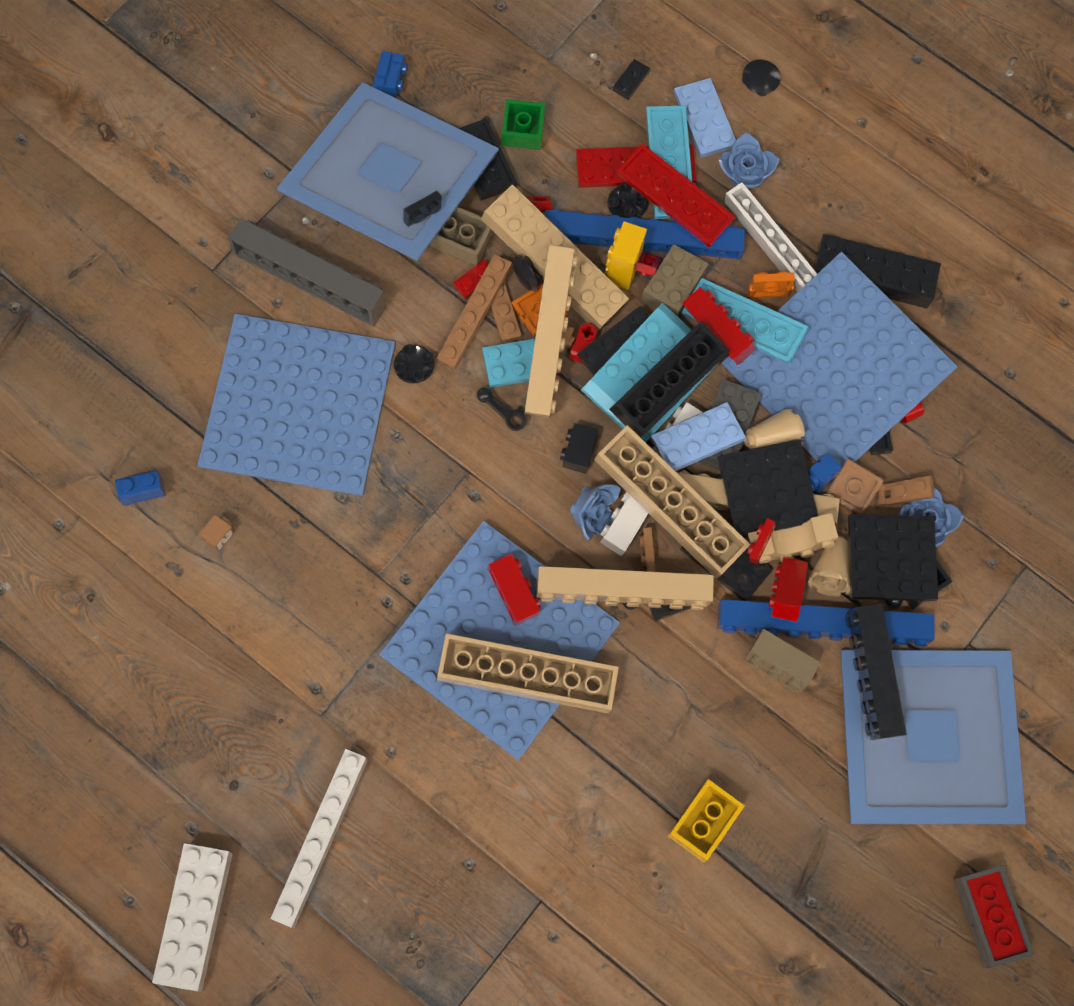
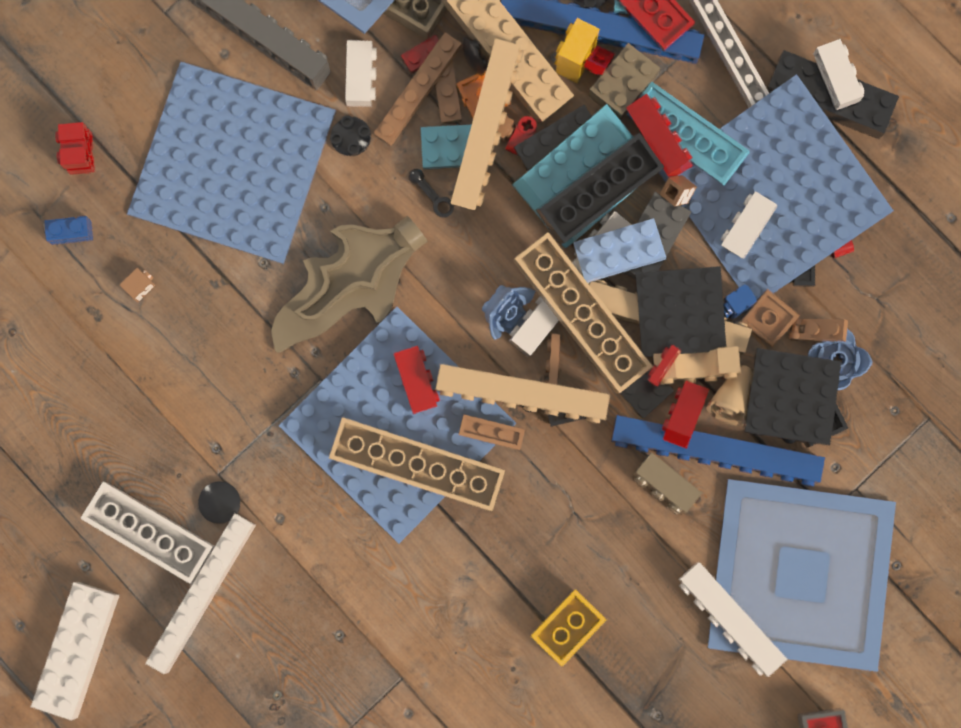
camera: 15 degrees right, 10 degrees up
(139, 406) = (75, 148): none -> red brick
(256, 781) = (147, 532): none -> white brick
(326, 742) = (219, 502): none -> black dish
(415, 303) = (360, 73): none -> white brick
(439, 497) = (355, 277): none -> dark tan piece
(579, 448) = (502, 243): black brick -> none
(597, 633) = (491, 432): none -> medium nougat plate
(745, 375) = (678, 190): none -> medium nougat brick
(771, 285) = (721, 98): orange plate -> none
(775, 430) = (698, 252): tan cone -> none
(820, 397) = (748, 224): none -> white brick
(871, 789) = (732, 619): none -> white brick
(875, 671) = (755, 509): black brick -> none
(881, 248) = (838, 74): none -> white brick

